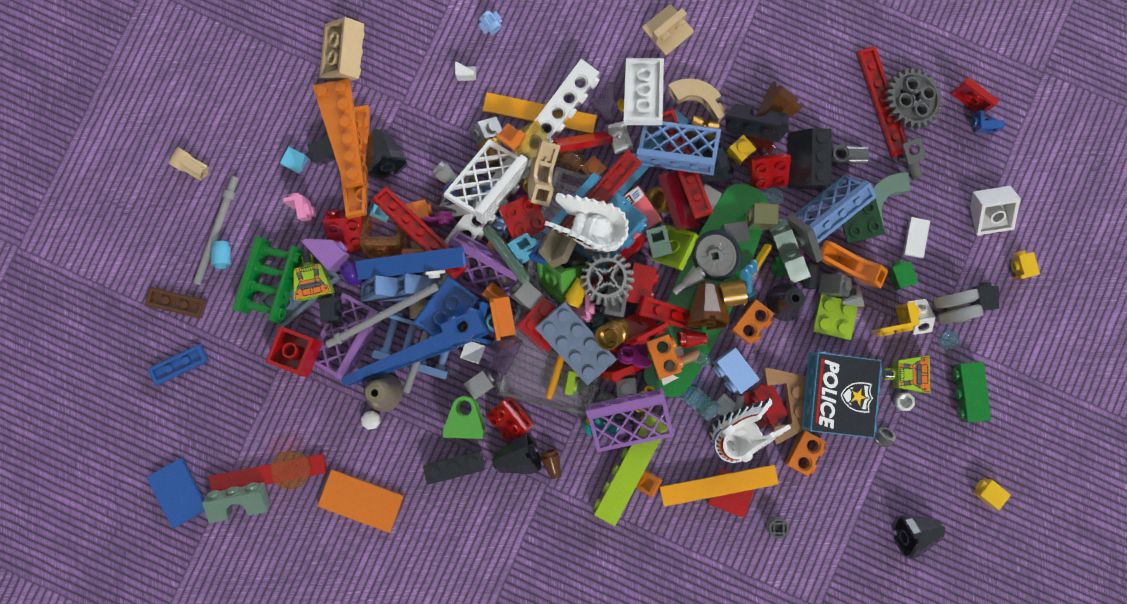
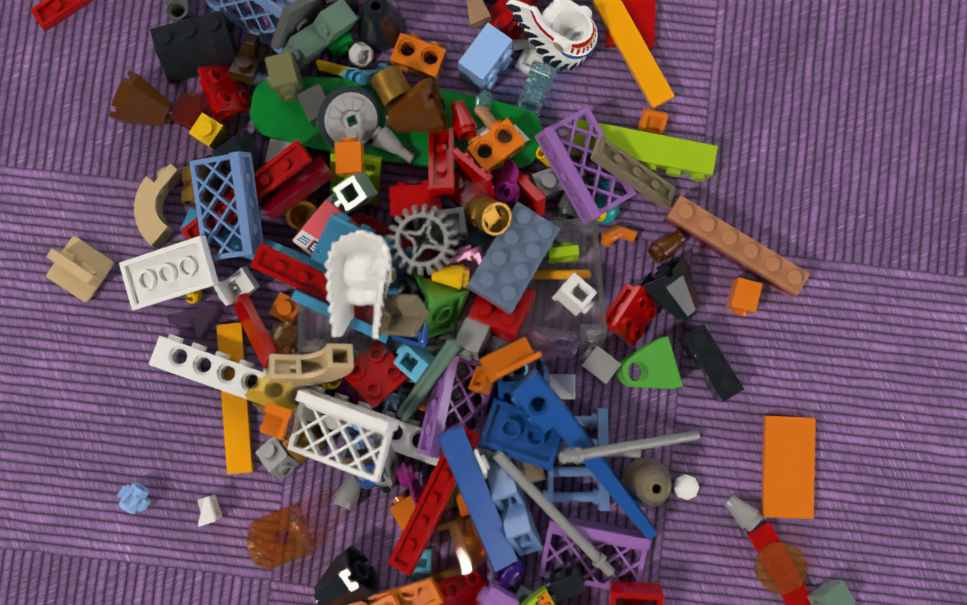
camera: 110 degrees left, 0 degrees up
(338, 455) = (744, 514): none -> light grey cone
(416, 342) = (578, 455): none -> light grey bar
(425, 106) = (269, 550): none -> clear orange hose
(495, 508) = (743, 296): none -> orange brick
(534, 515) = (736, 247): none -> nougat brick
(540, 385) = (575, 295): none -> white brick
(574, 429) = (615, 233): none -> orange arm
(613, 454) = (633, 173): none -> dark tan tile
(687, 245) = (349, 157): none -> orange brick
(767, 279) = (360, 55): none -> white tile
(768, 127) = (170, 103): black arch -> none
(787, 195) = (249, 60): none -> dark brown hinge

